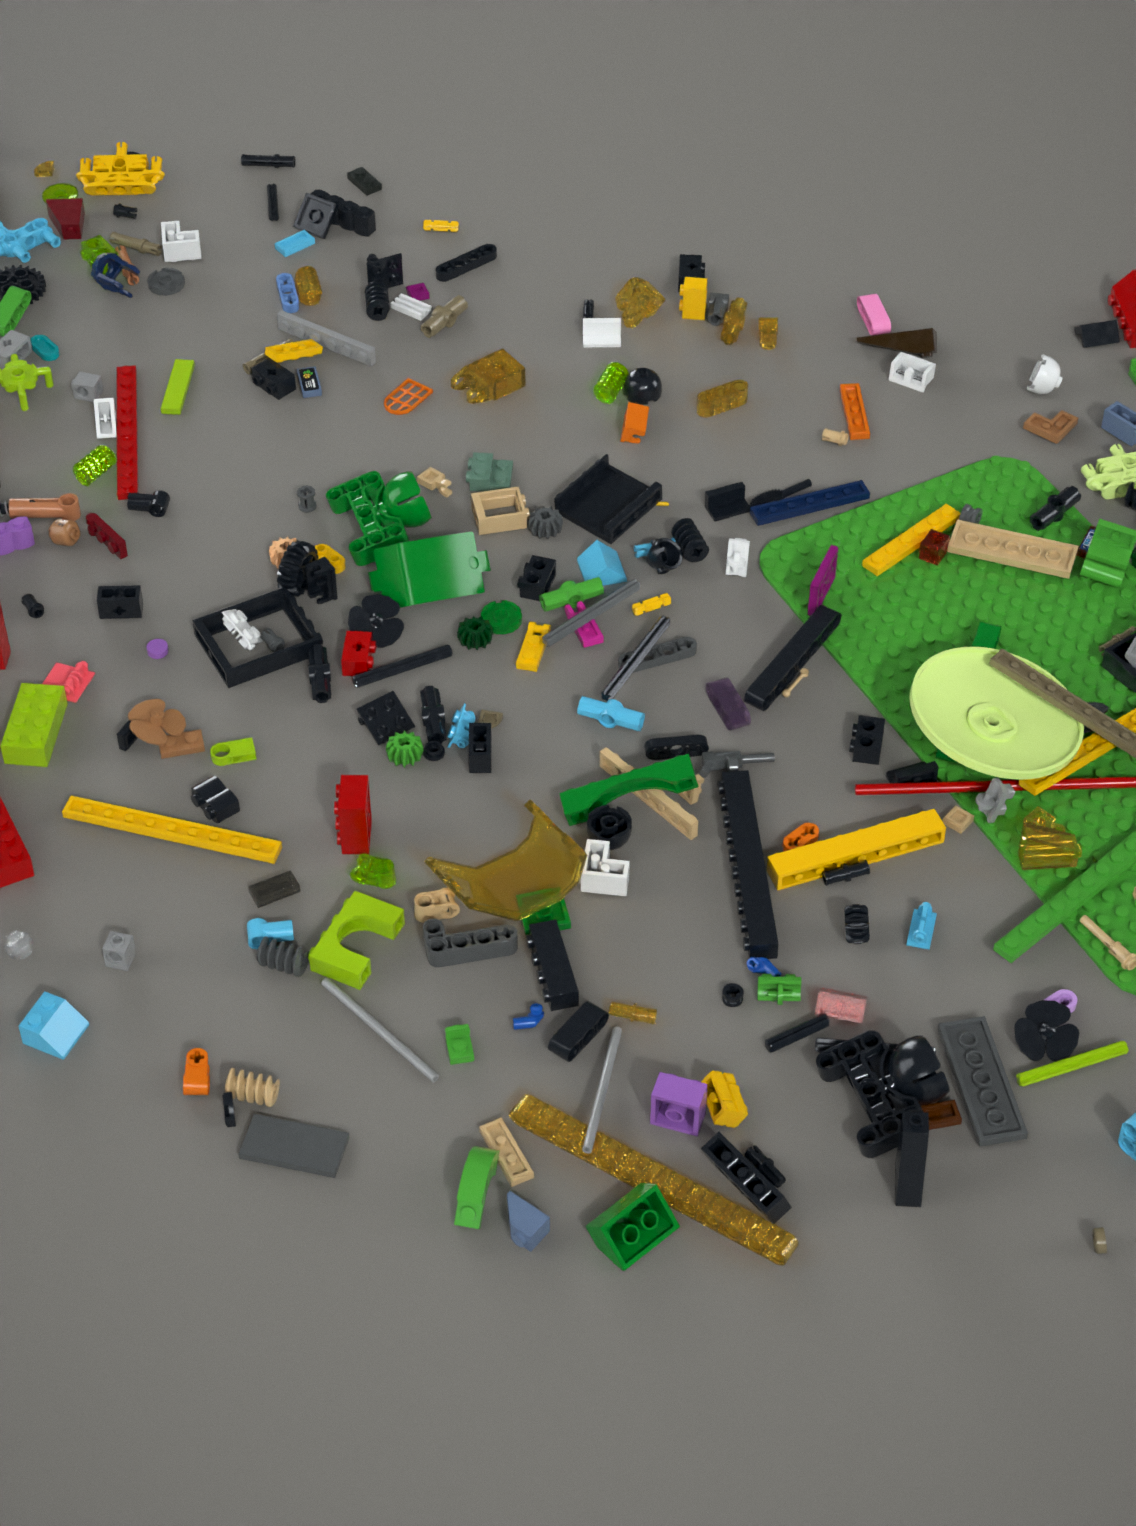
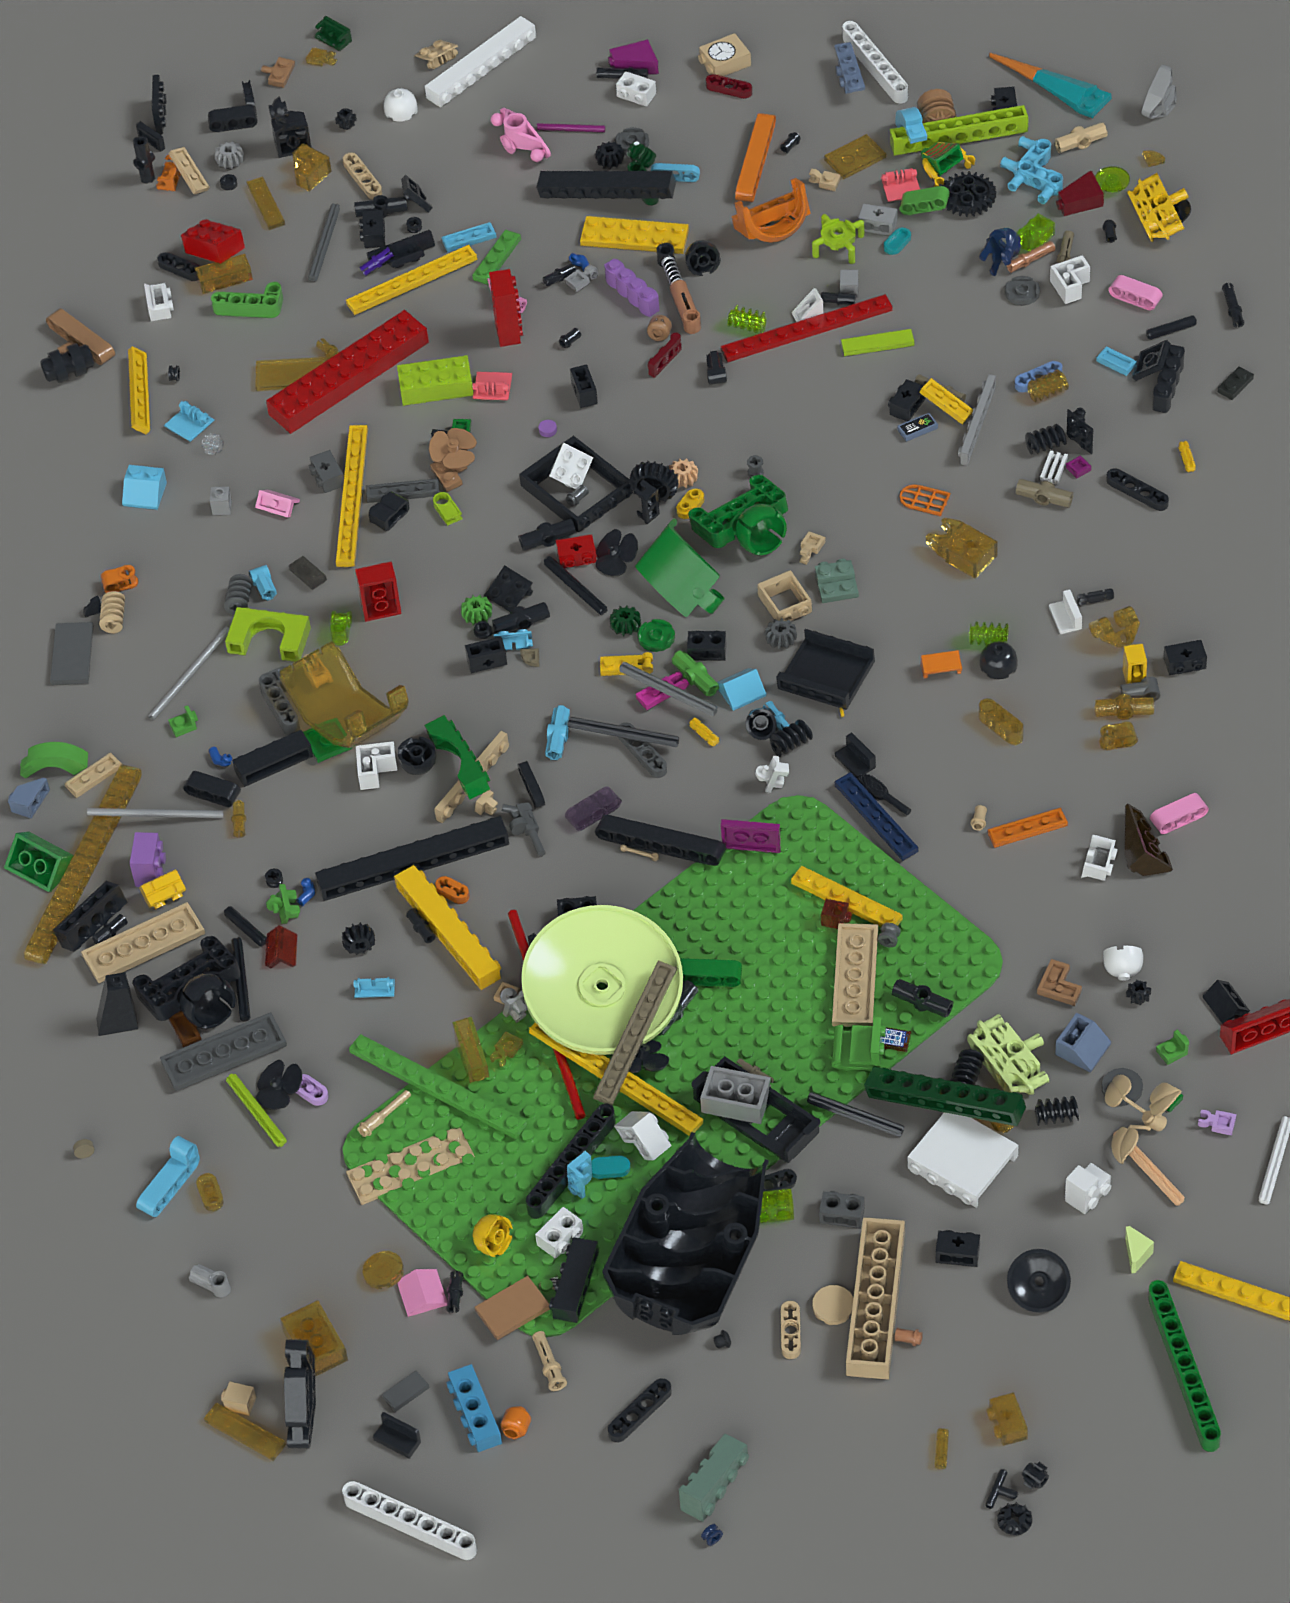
camera: 80 degrees right, 5 degrees up
(106, 392) = (839, 298): none -> black axle
(117, 716) = (462, 424): none -> green plate
(123, 844) = (326, 471): none -> dark grey brick
(147, 900) = (276, 502): none -> bright pink panel
(186, 778) = (406, 489): none -> dark grey tile
(217, 211) = (1135, 292): none -> bright pink beam
(796, 1136) = (143, 942): none -> tan plate
(1075, 379) = (1138, 992): none -> black gear

